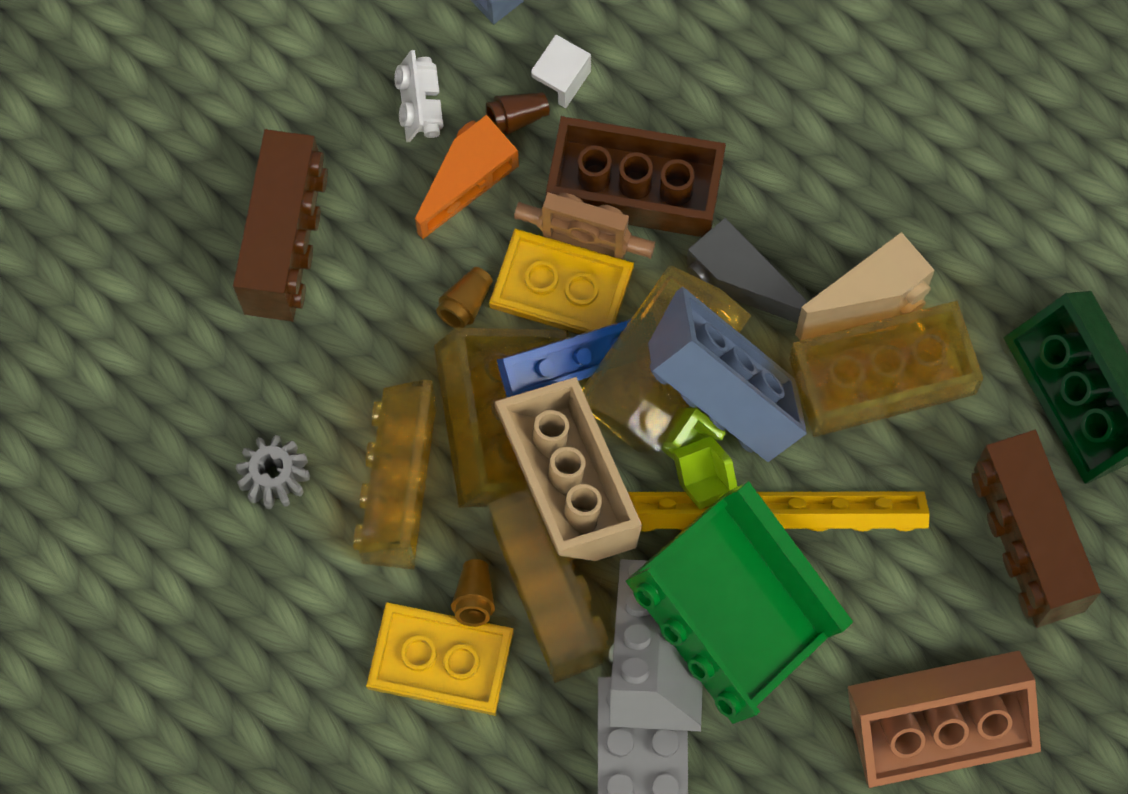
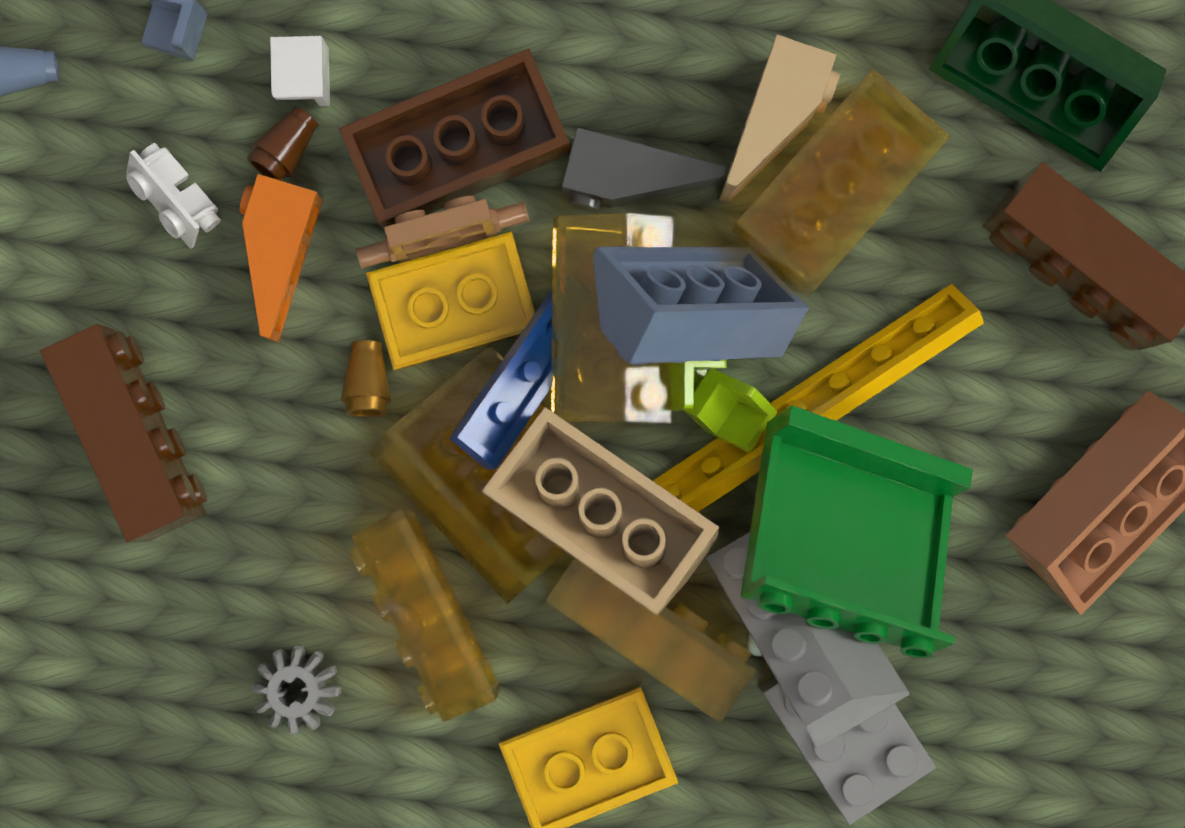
camera: 35 degrees left, 15 degrees up
(474, 596) = (581, 682): pearl gold cone -> none

